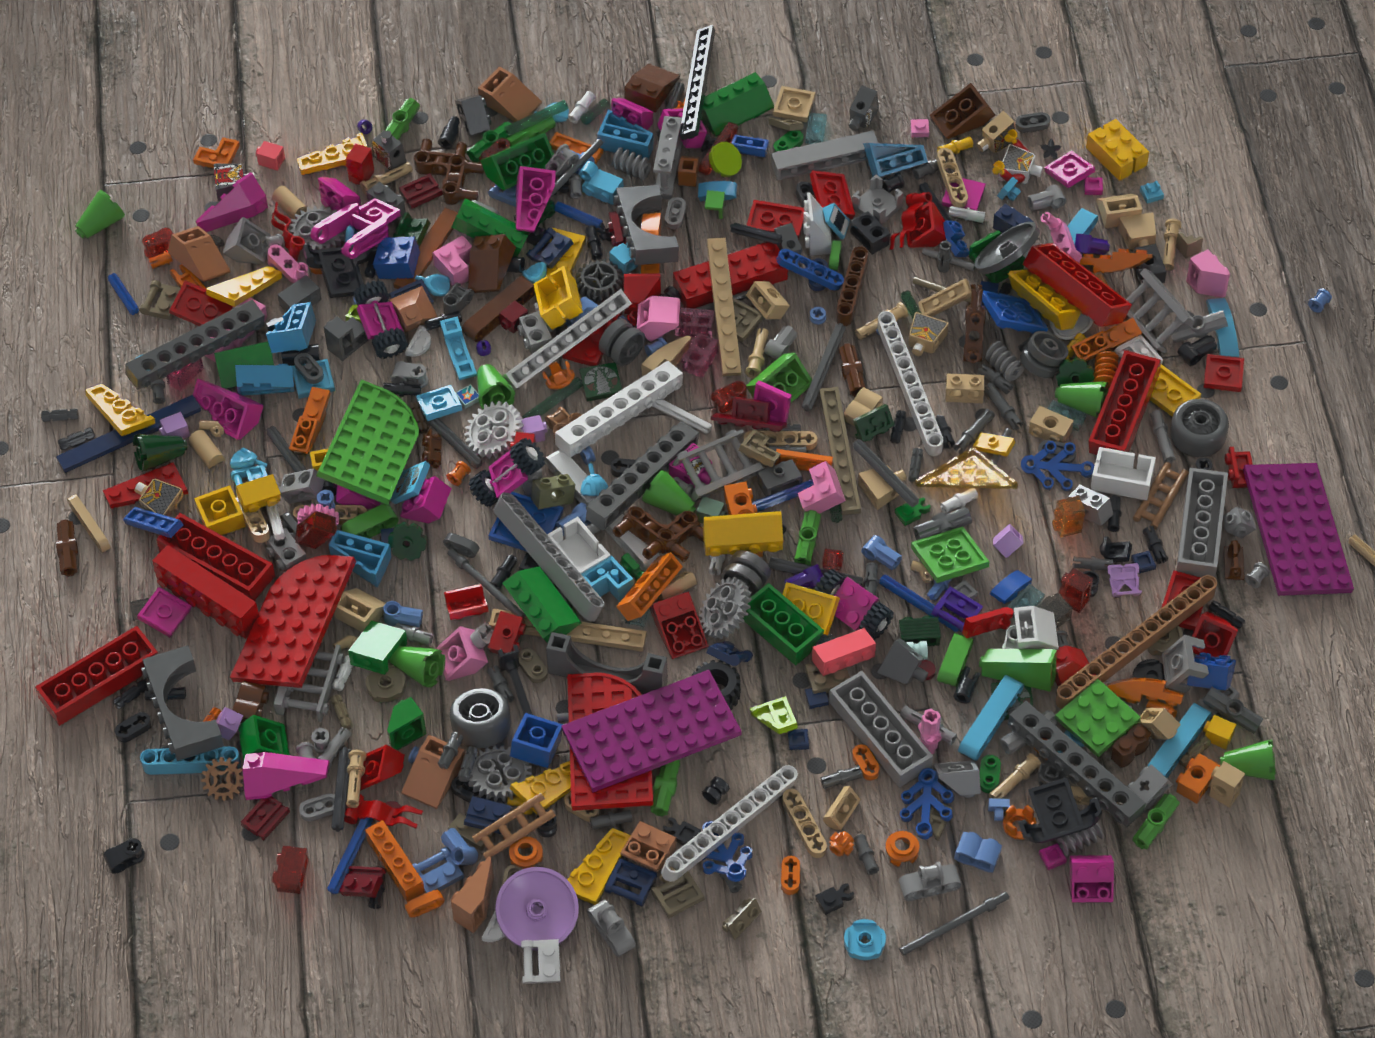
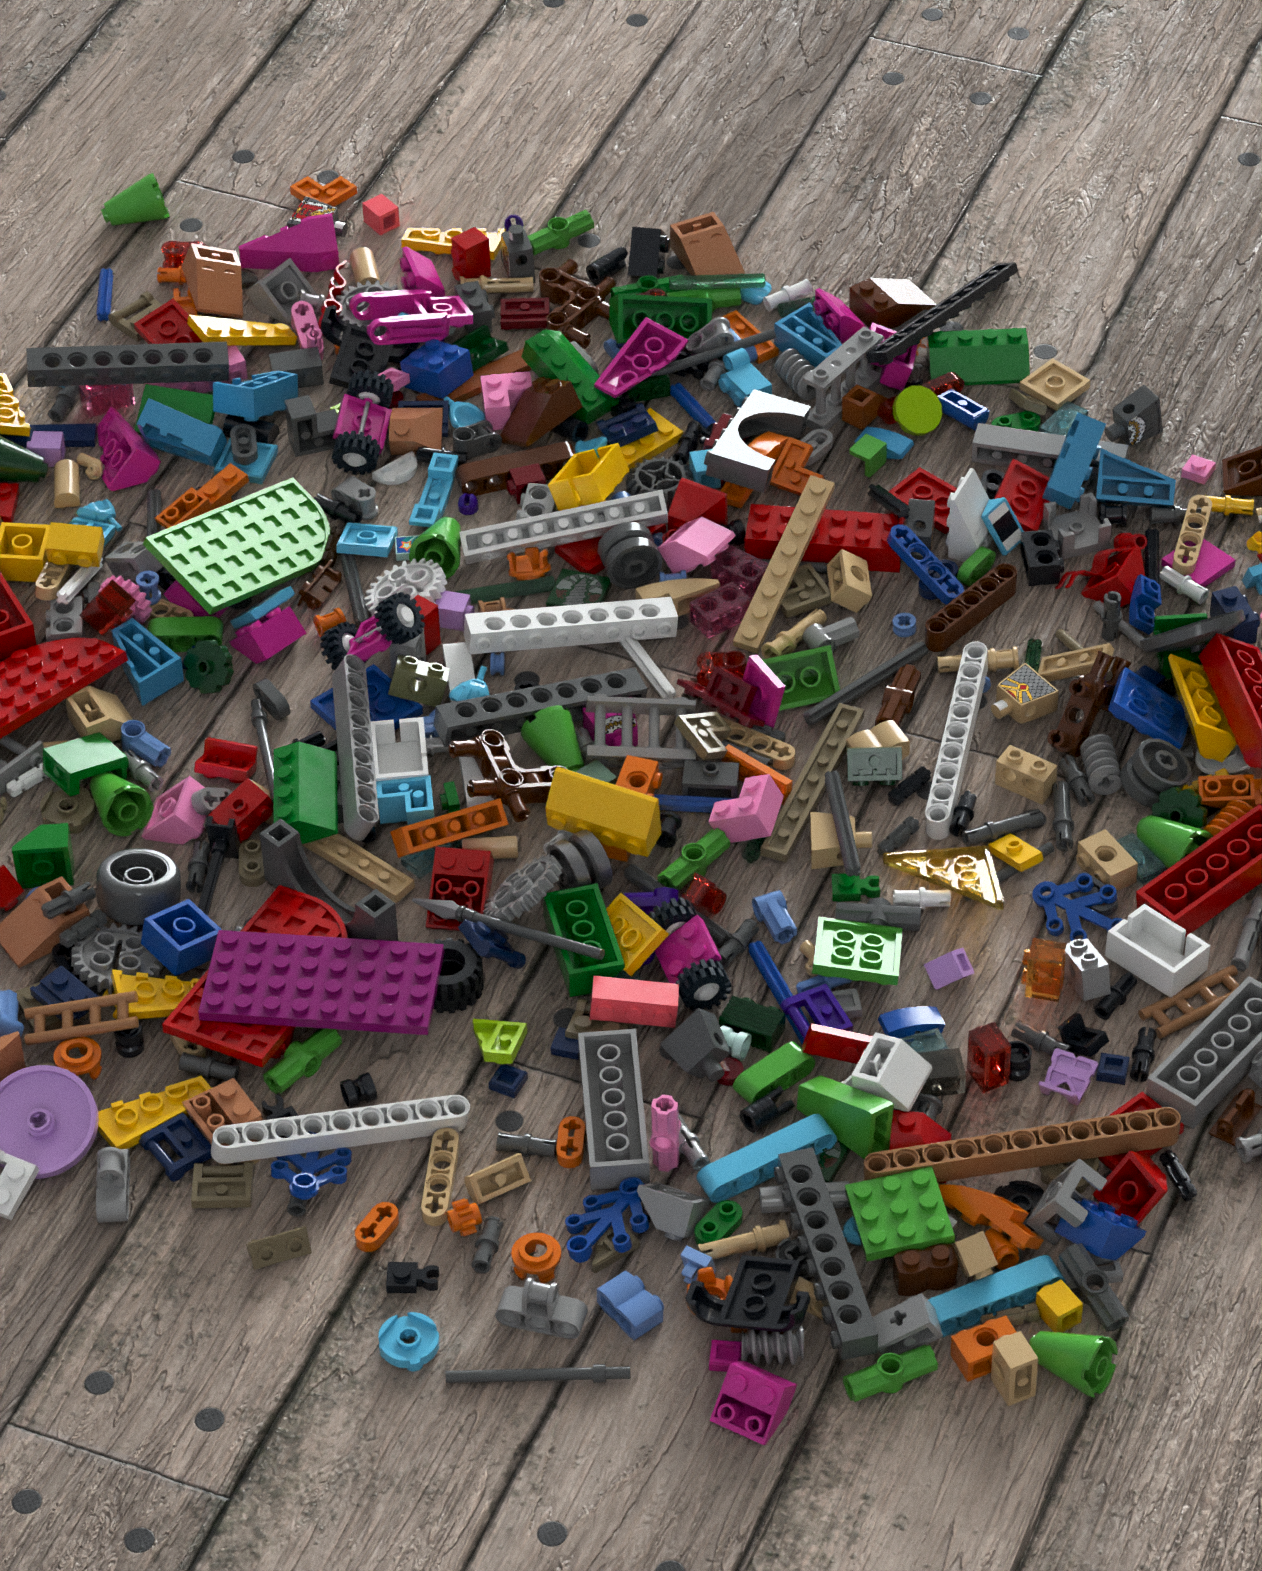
camera: 30 degrees right, 10 degrees down
(371, 275) = (397, 377): none -> bright pink plate
(686, 240) = (789, 469): none -> orange plate
(687, 642) = (450, 910): none -> dark grey piece
(854, 157) = (1074, 461): none -> dark azure wedge

